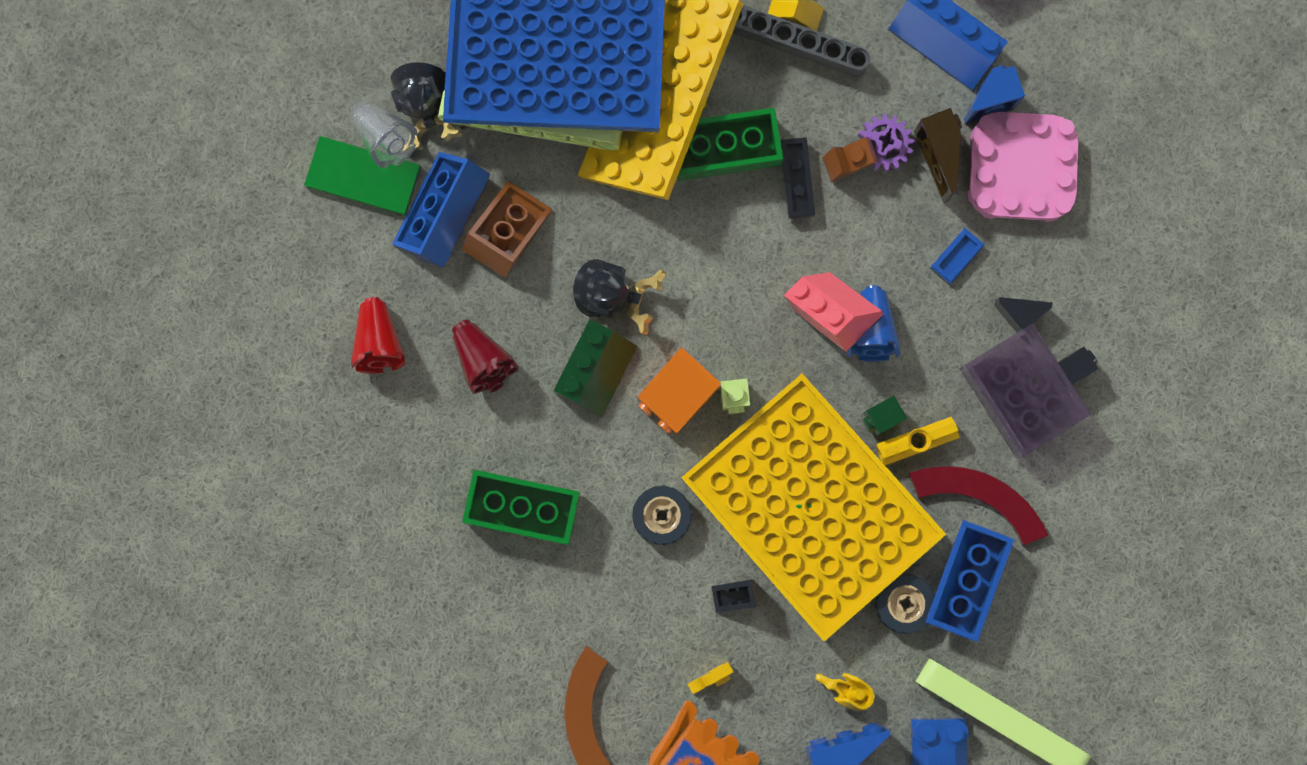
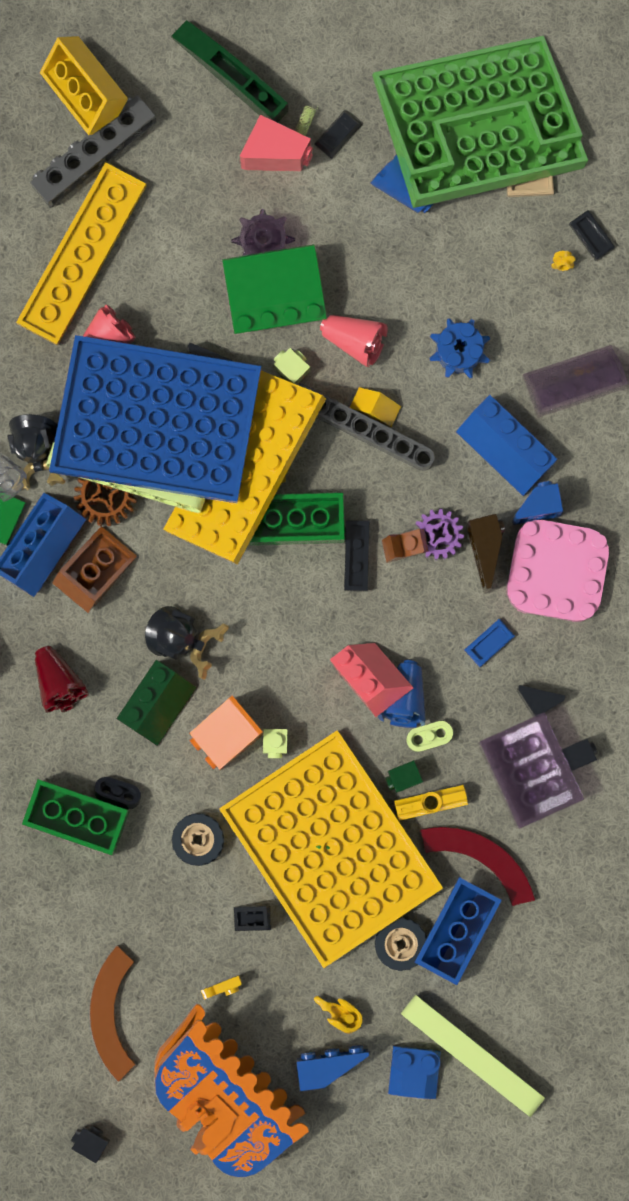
camera: 10 degrees right, 0 degrees up
(499, 151) = (95, 499): none -> dark orange gear
(565, 473) = (118, 792): none -> black plate
(905, 368) = (429, 736): none -> yellowish green plate

